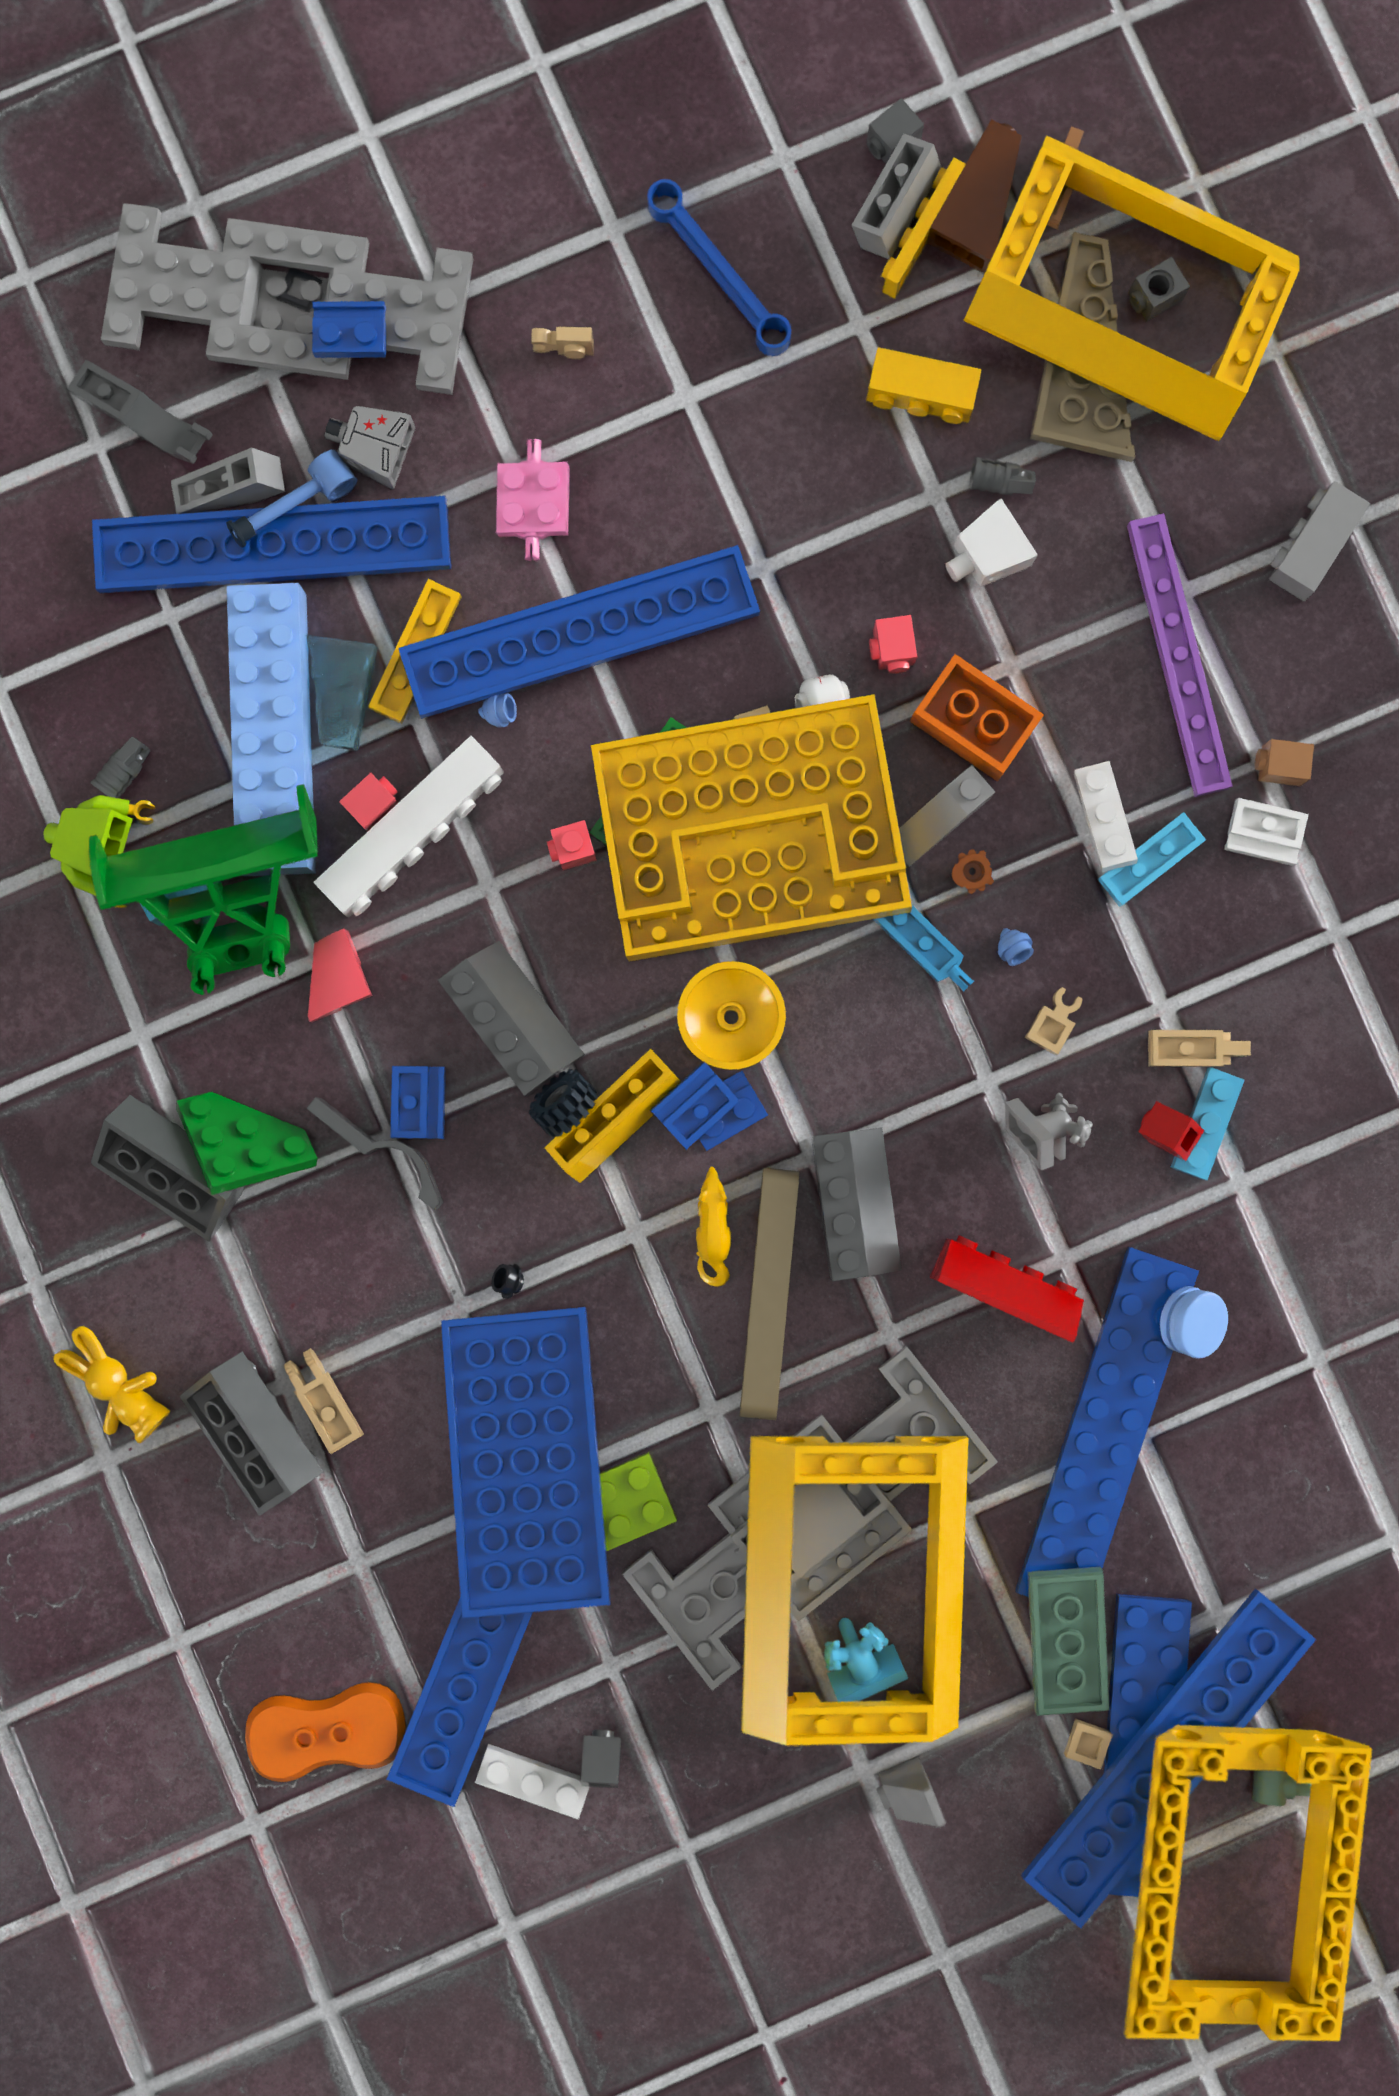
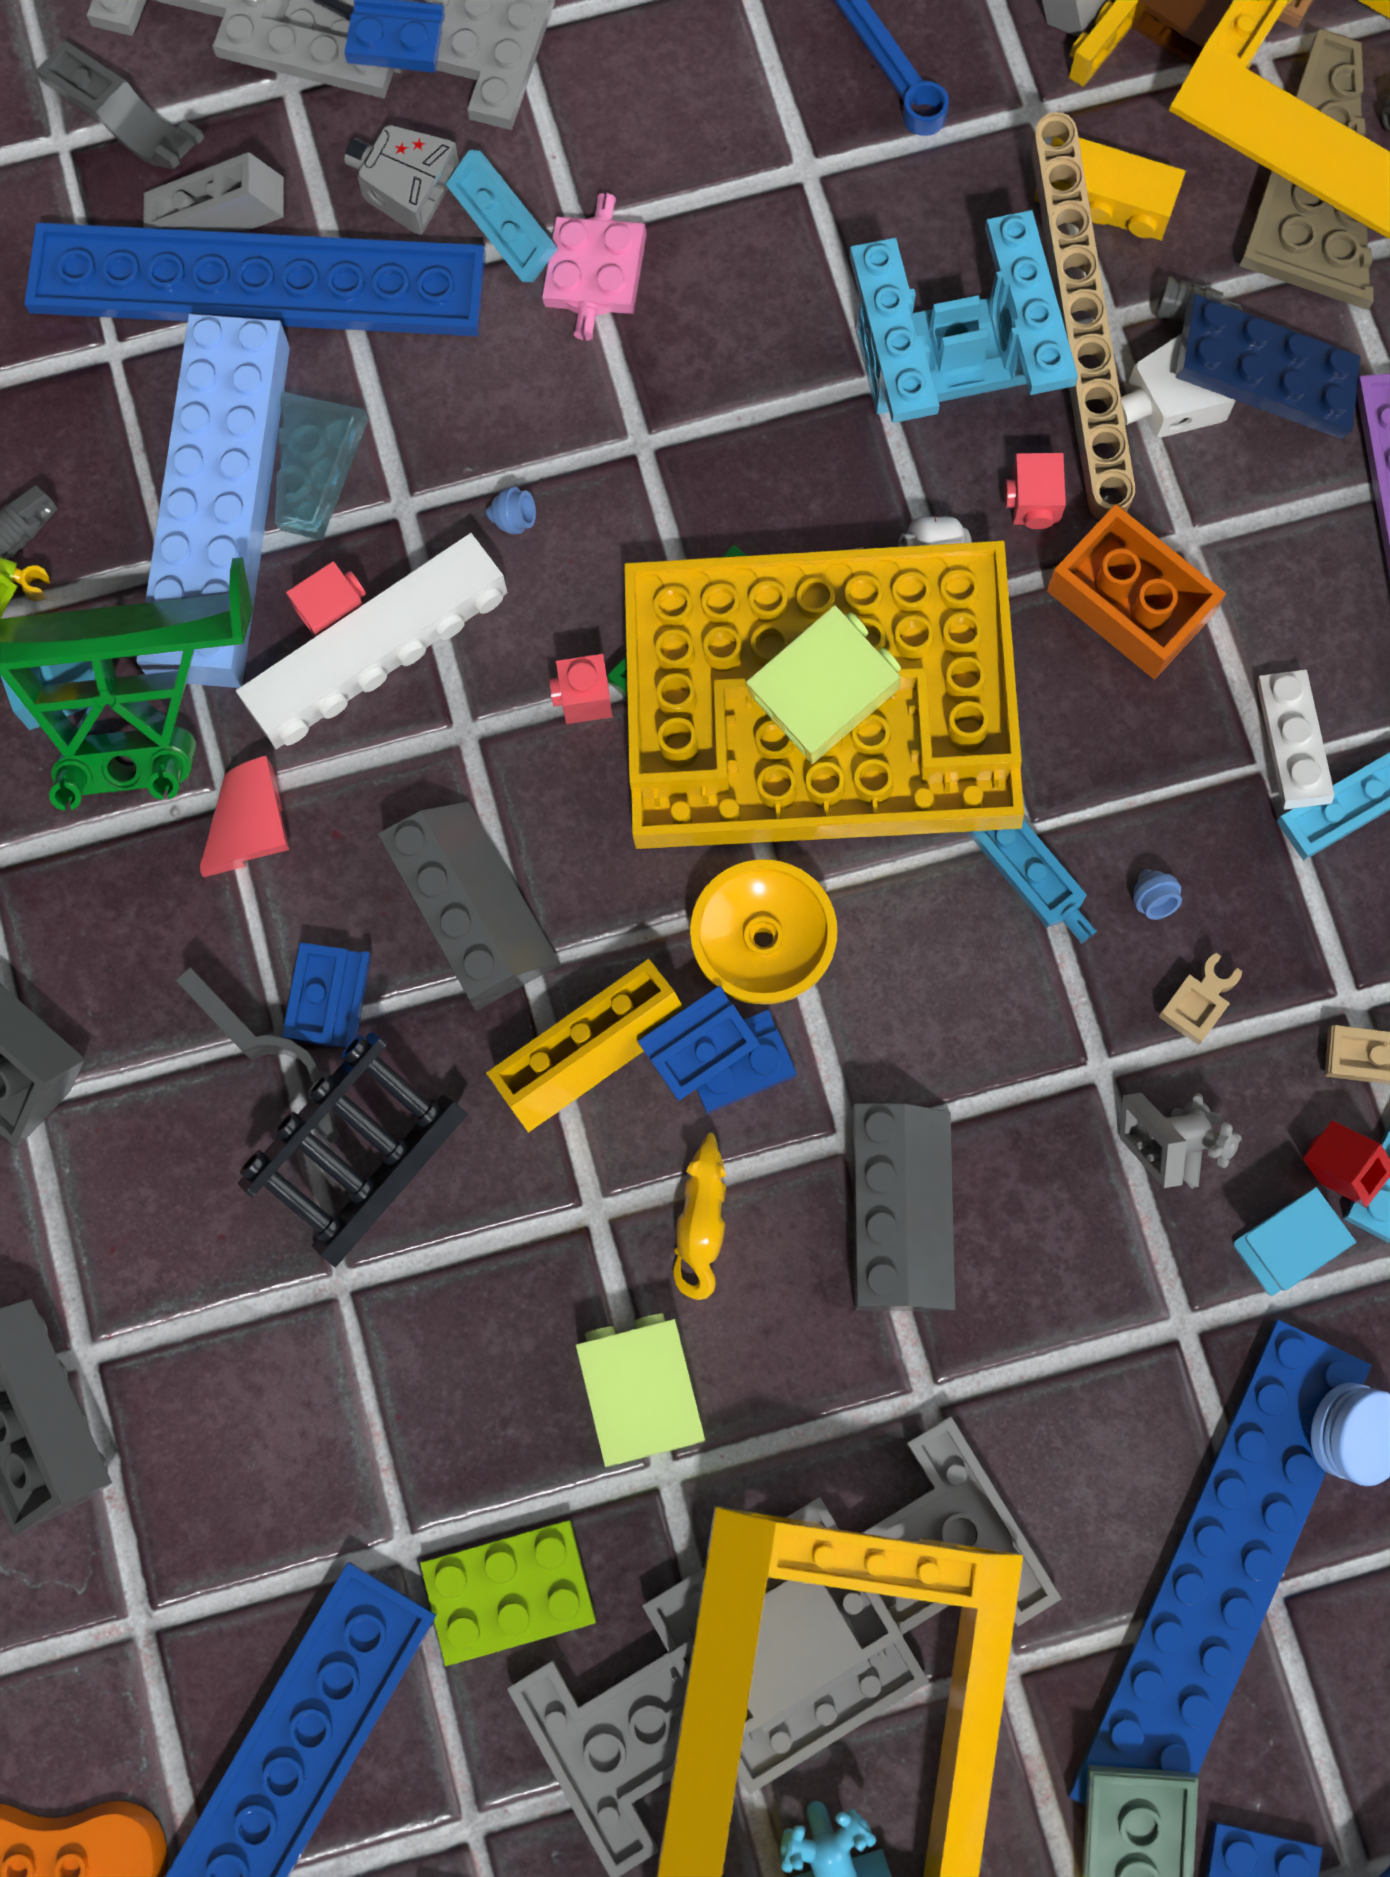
camera: 10 degrees right, 10 degrees down
(241, 1143) = (80, 1018): green plate -> none
(324, 1404) = (131, 1390): tan hinge -> none
(329, 476) = (341, 207): medium blue piece -> none
(427, 621) = (415, 427): yellow plate -> none
(454, 468) = (501, 216): none -> medium azure plate
(472, 1244) = (367, 1194): none -> black fence
(507, 1280) = (410, 1251): black plate -> none
(525, 1463) = (393, 1511): blue plate -> none
(563, 1103) = (520, 1017): black bush -> none
(568, 341) = (666, 83): tan plate -> none
(579, 631) = (629, 426): blue plate -> none
(686, 1358) = (639, 1390): none -> yellowish green brick
(754, 826) = (825, 683): none -> yellowish green brick
(769, 1294) = (766, 1320): dark tan beam -> none
(857, 521) = (964, 342): none -> medium azure piece
(915, 483) = (1082, 295): none -> tan beam
(944, 814) = (1081, 709): light grey slope -> none
(982, 875) = (1118, 779): dark orange animal -> none
(1008, 1288) = (1102, 1354): red slope -> none
(1059, 524) = (1268, 367): none -> dark blue plate
(1136, 1192) = (1293, 1242): none -> medium azure piece

